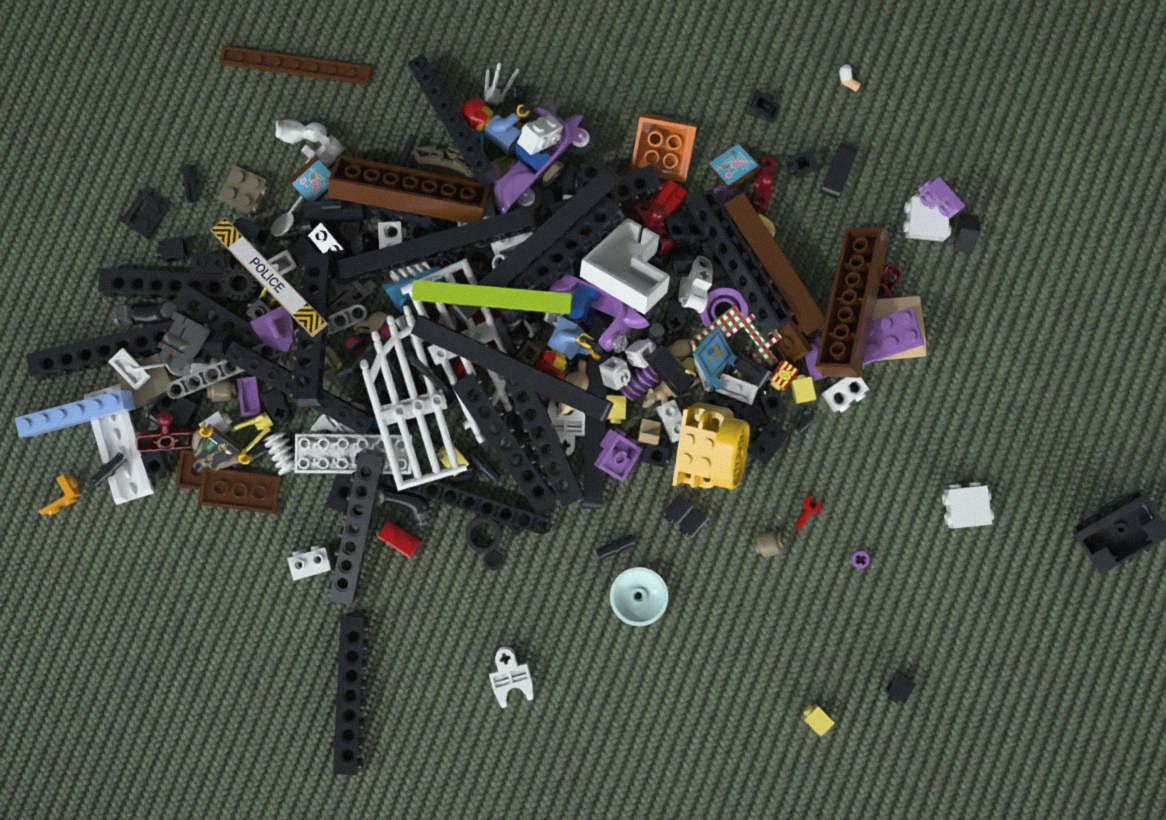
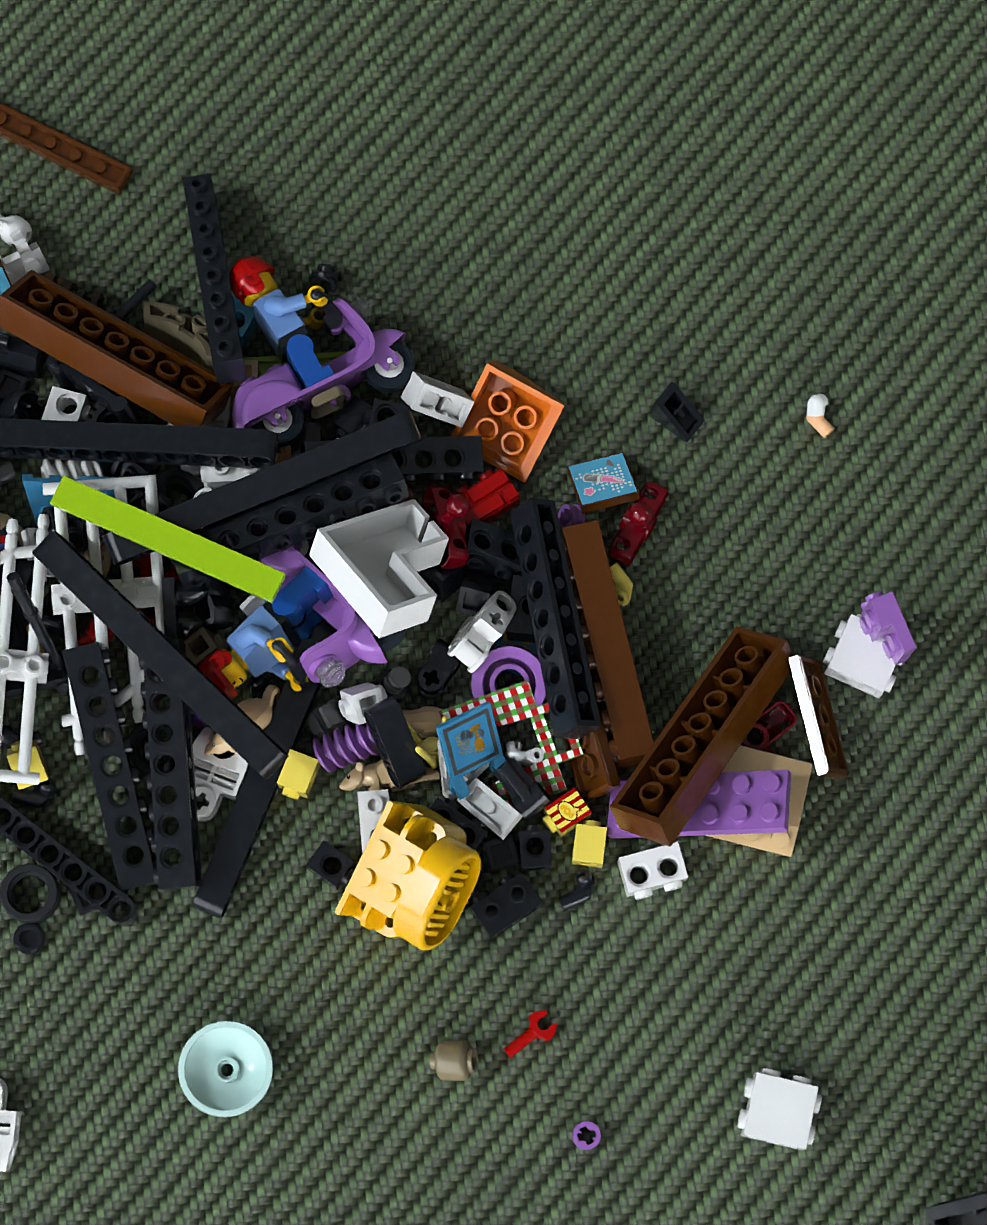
camera: 20 degrees right, 10 degrees down
(483, 465) = (70, 791): black axle -> none
(492, 94) = (290, 265): white plant -> none
(540, 134) = (328, 336): white brick -> none
(615, 373) = (312, 718): white brick -> none
(615, 547) = (219, 983): black pin -> none
(616, 149) = (437, 399): none -> white brick
(618, 454) = (273, 842): medium lavender plate -> none
(649, 431) = (333, 825): tan slope -> none
(685, 516) = (342, 973): black brick -> none
(748, 350) = (525, 758): none -> white arm
(807, 159) = (711, 505): black brick -> none
(838, 171) = (756, 542): black beam -> none
(913, 266) = (818, 717): none -> reddish brown tile
(966, 233) = (918, 699): black slope -> none

